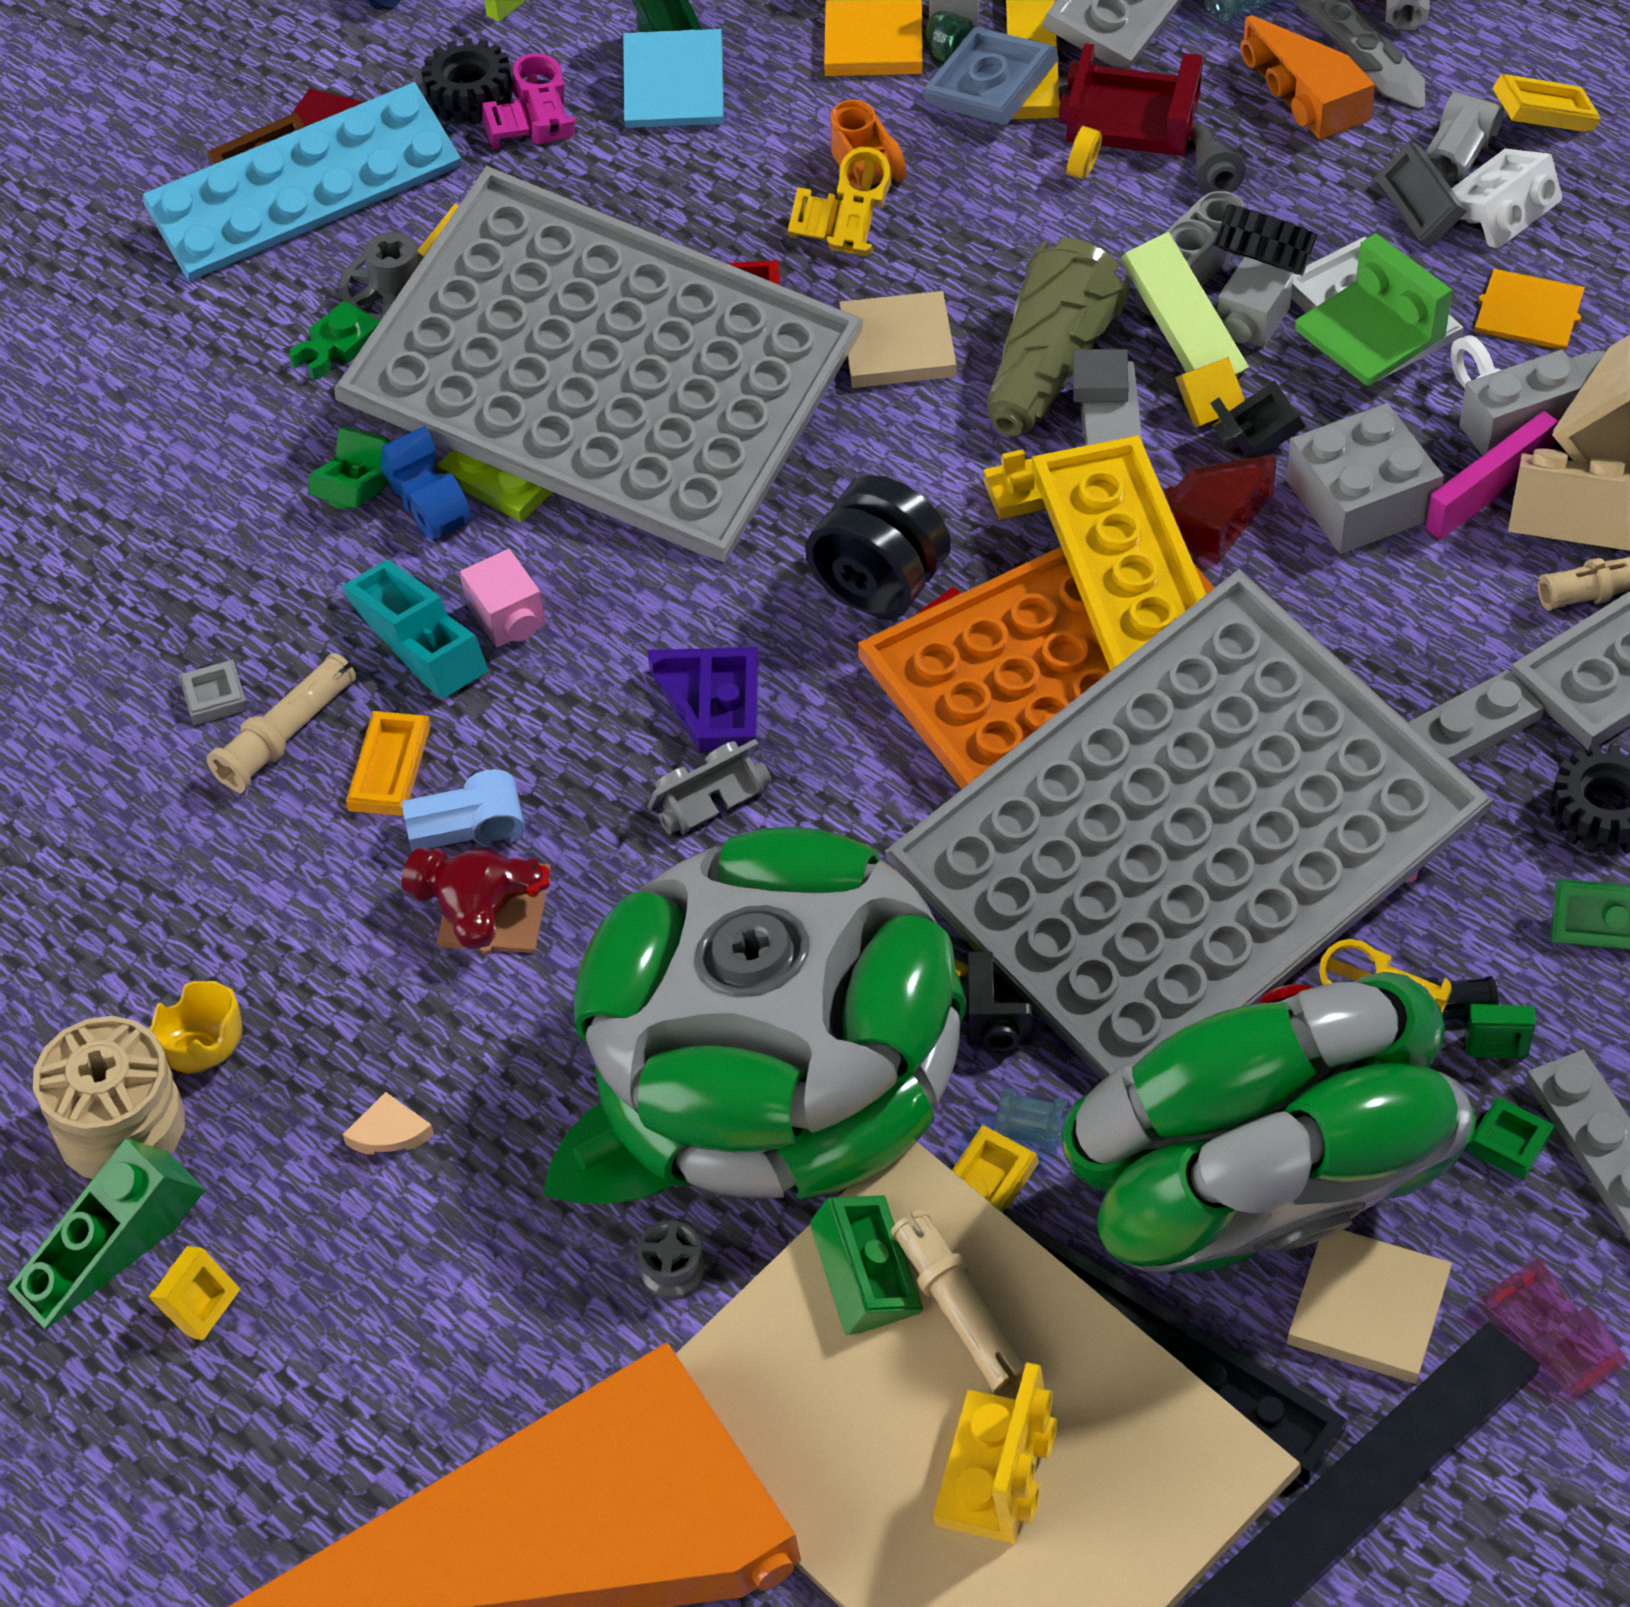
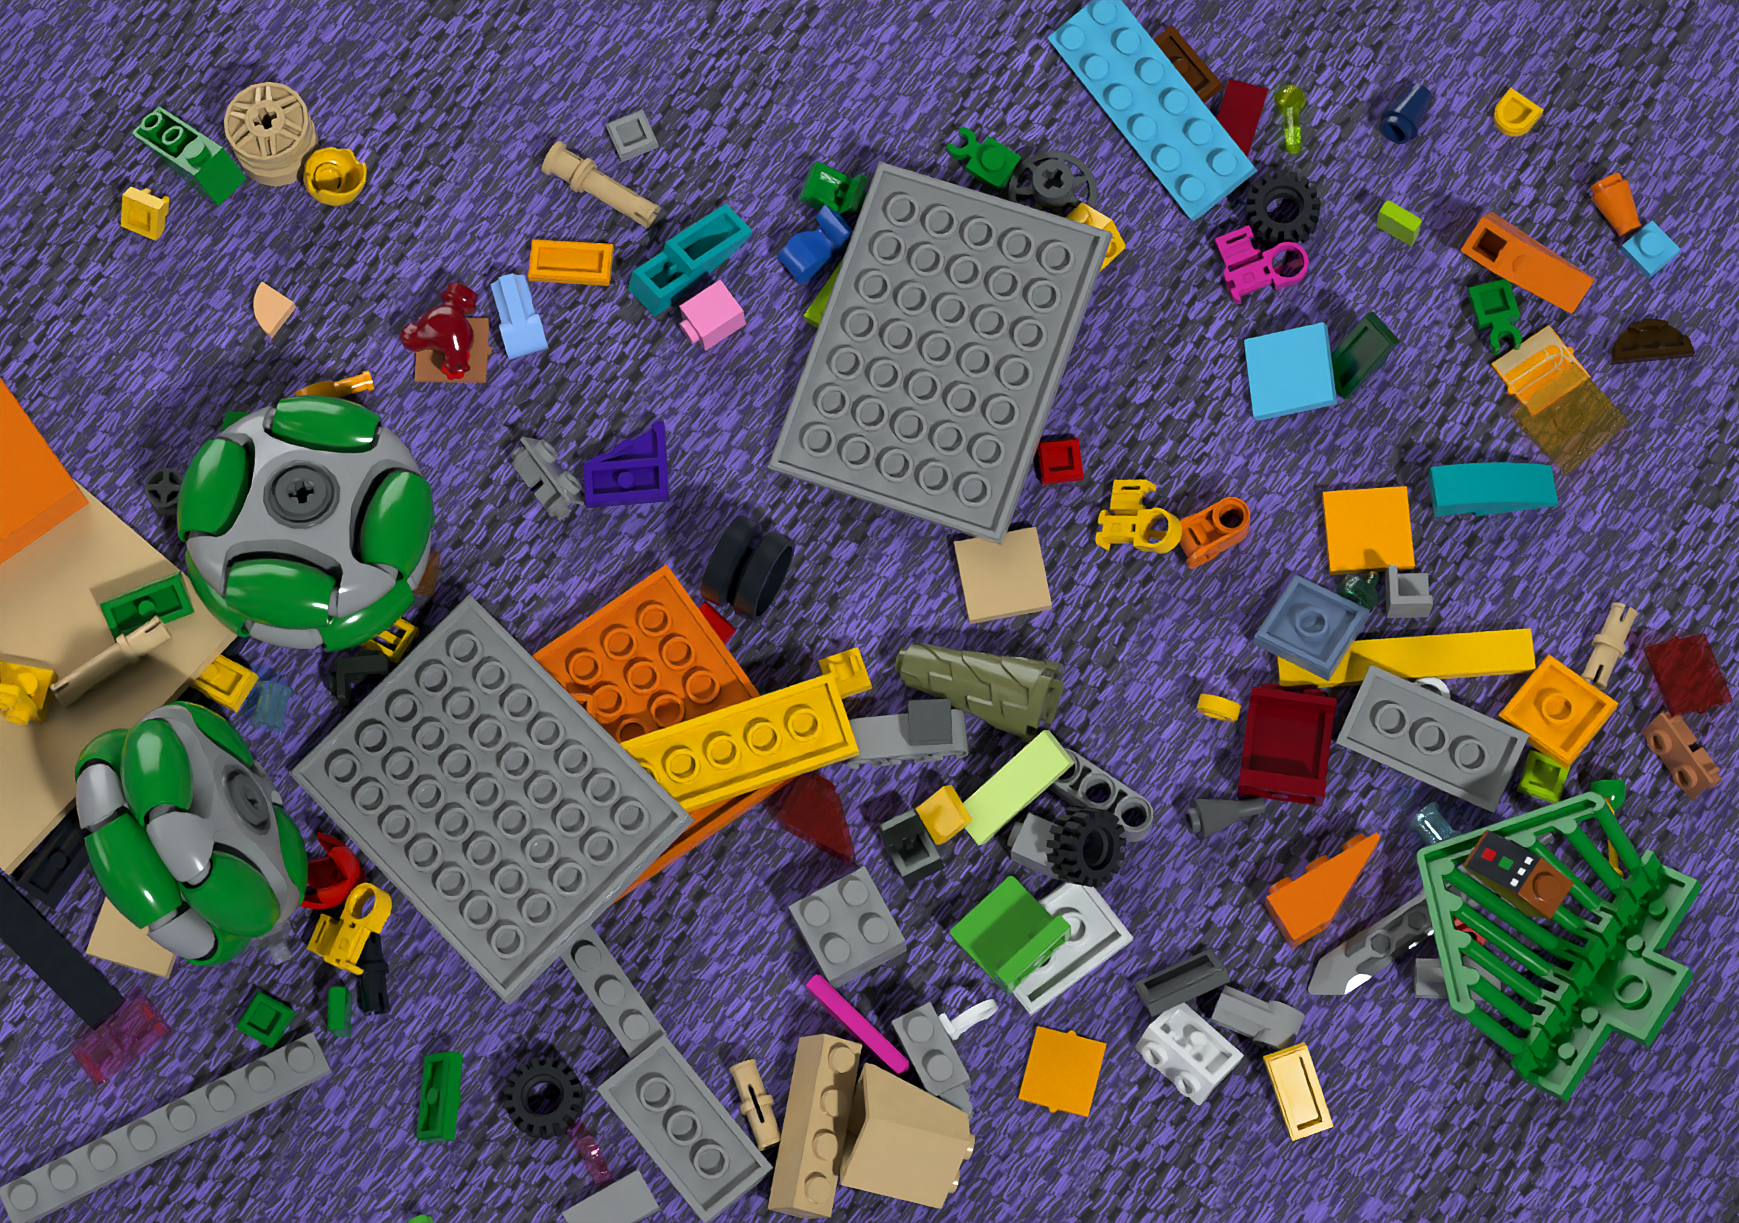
camera: 90 degrees right, 20 degrees up
(330, 78) = (1291, 101): none -> clear neon green bar
(552, 1054) = (339, 388): none -> light orange bar

